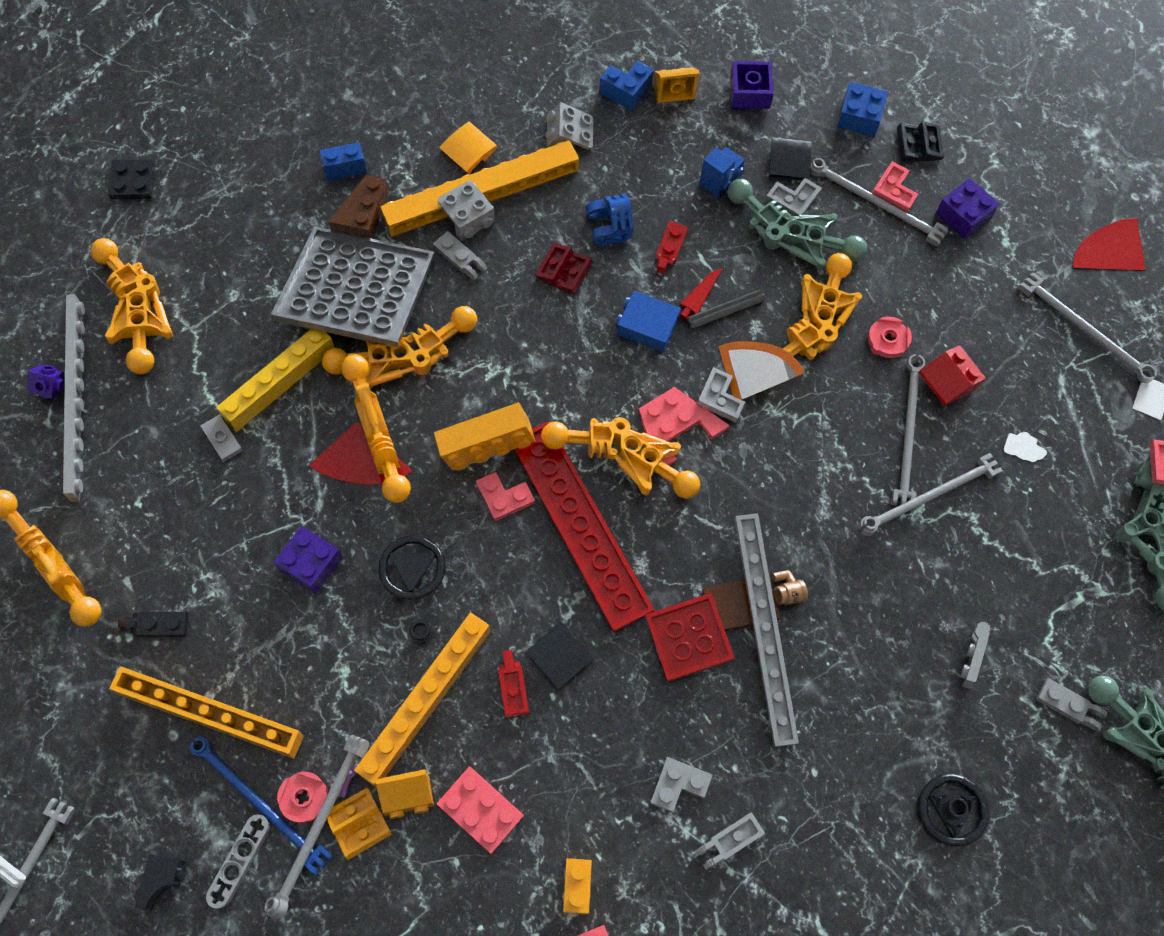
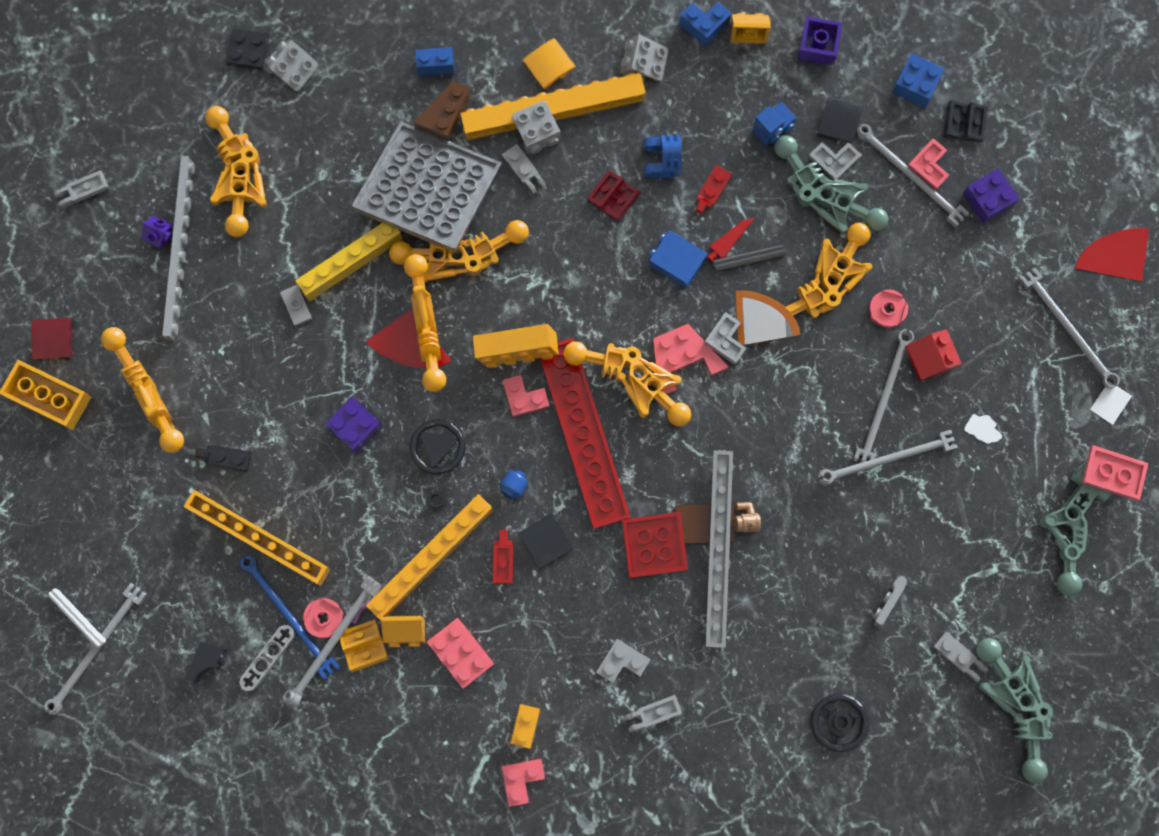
camera: 15 degrees right, 10 degrees up
(183, 186) = (291, 64): none -> light grey bracket
(509, 595) = (513, 484): none -> blue head

